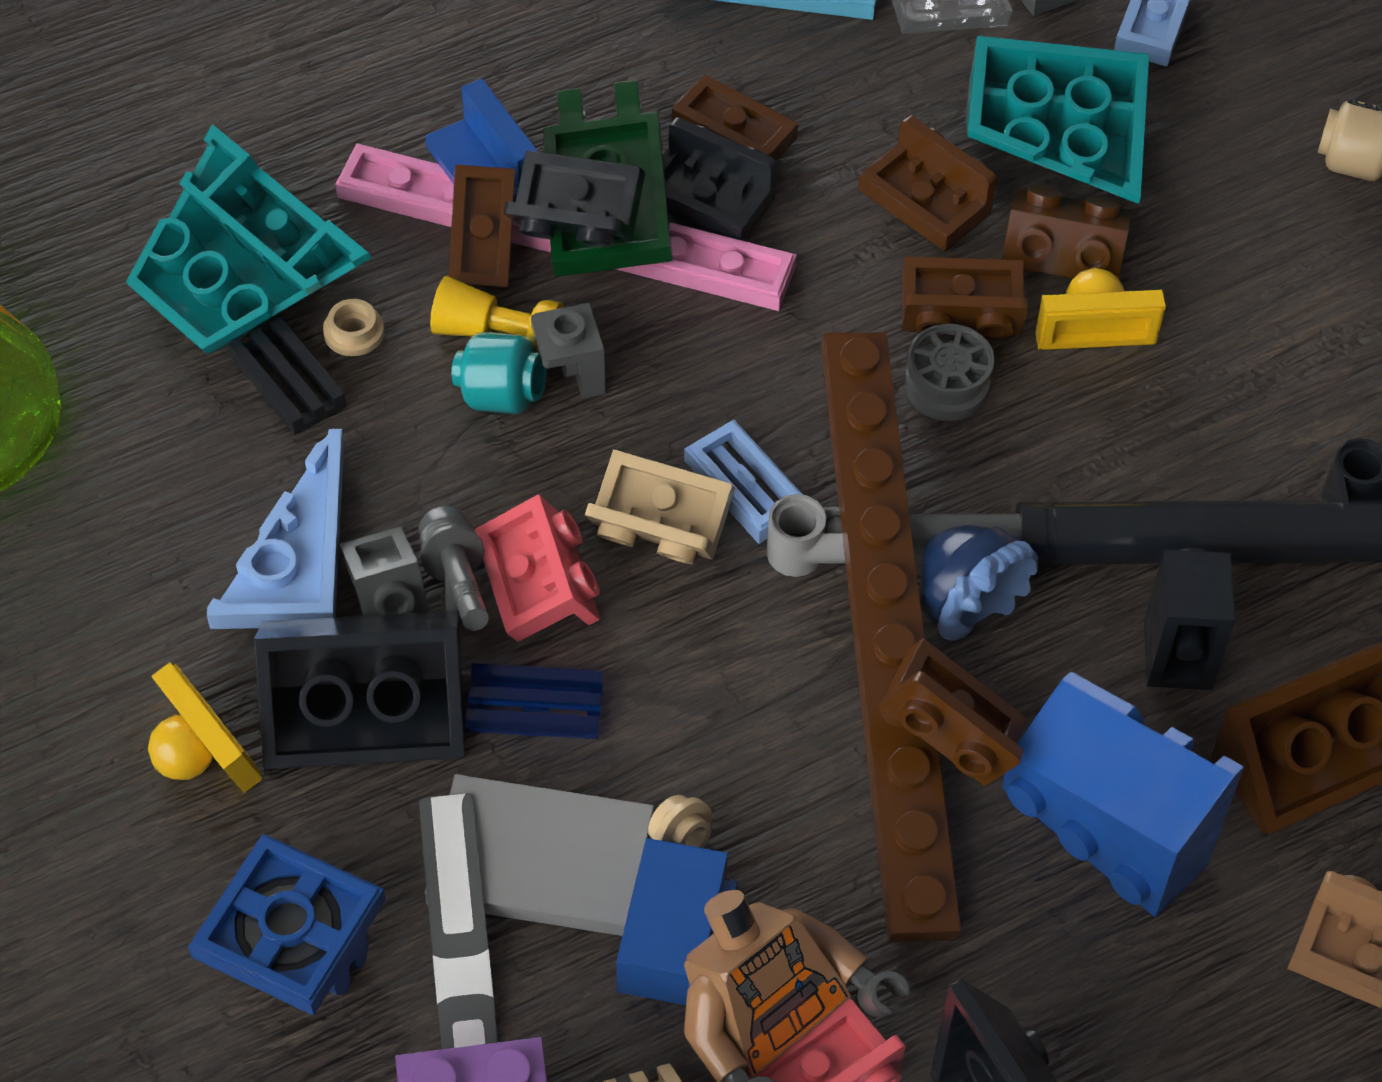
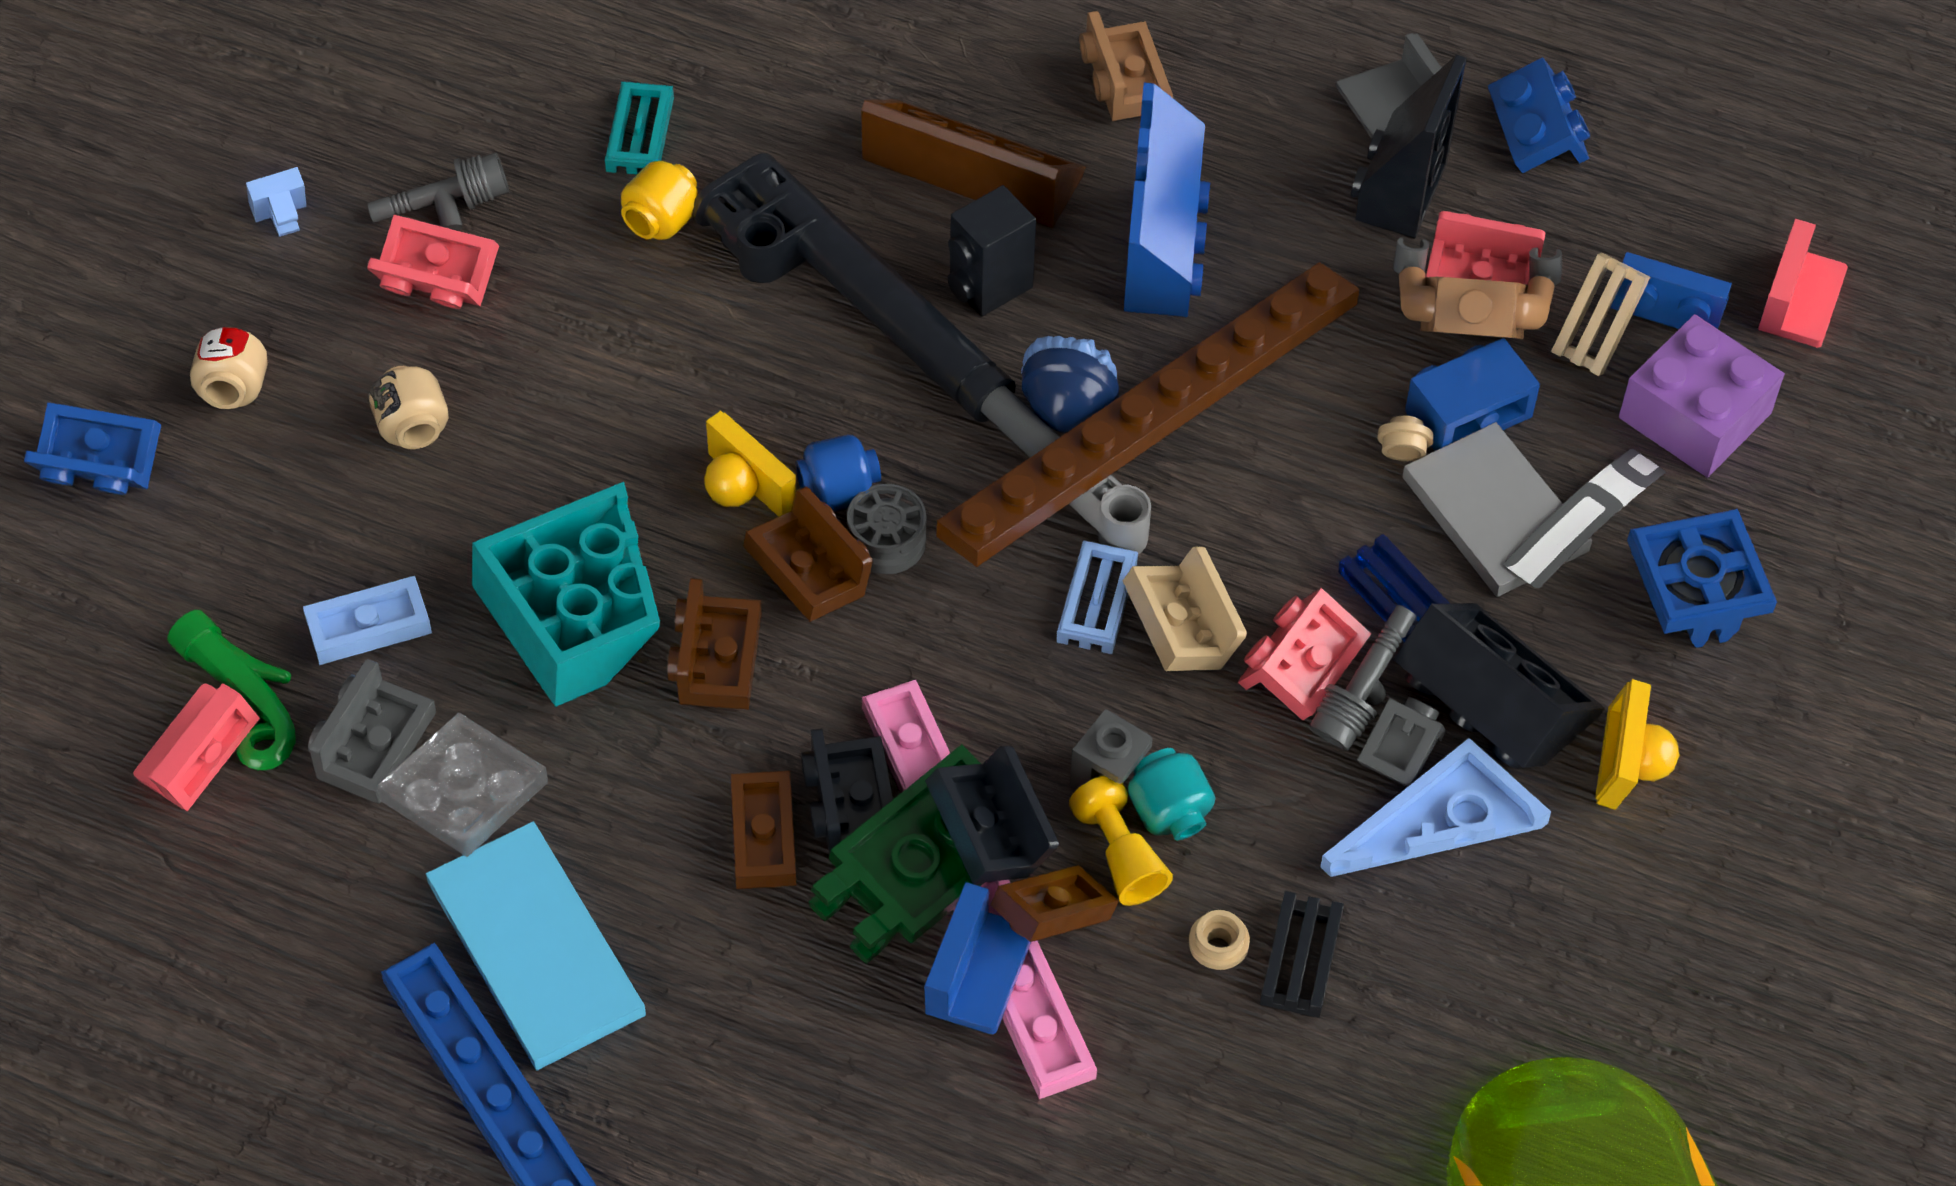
camera: 130 degrees left, 0 degrees up
(236, 250) = (1236, 1055): teal wedge -> none
(955, 713) = (1203, 311): reddish brown bracket -> none
(1034, 361) = (838, 470): none -> blue head
(1065, 233) = (677, 539): reddish brown bracket -> none

